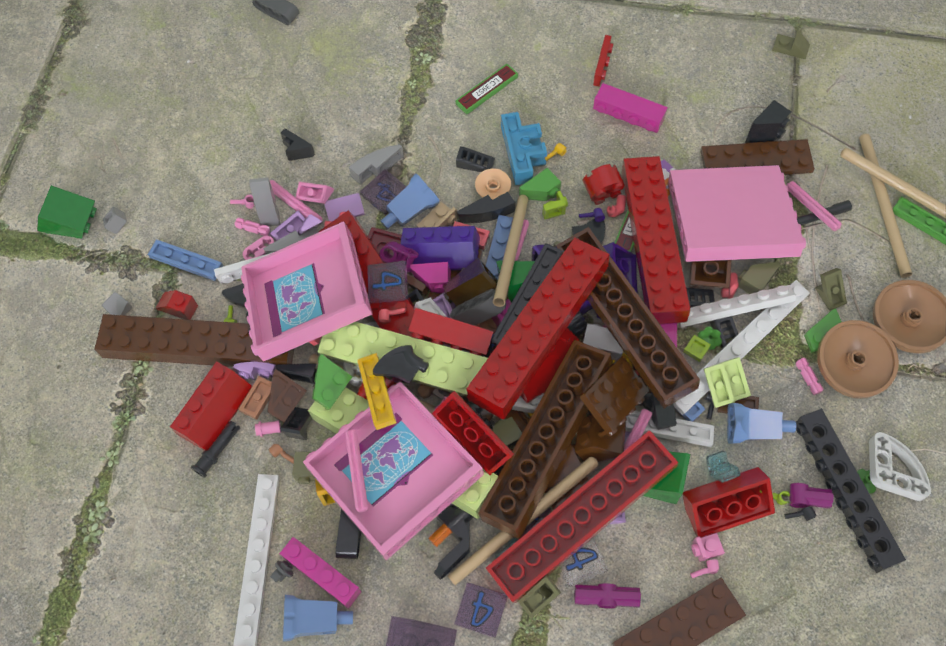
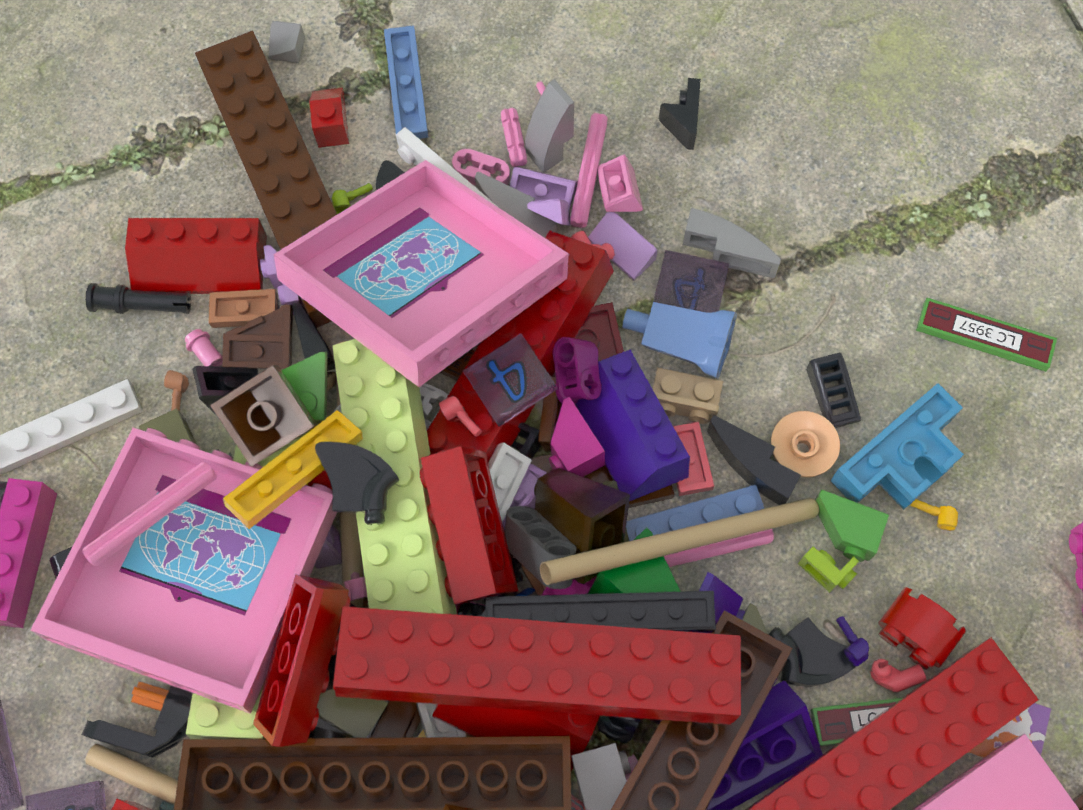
camera: 60 degrees right, 5 degrees up
(338, 392) = (263, 415): none -> slope

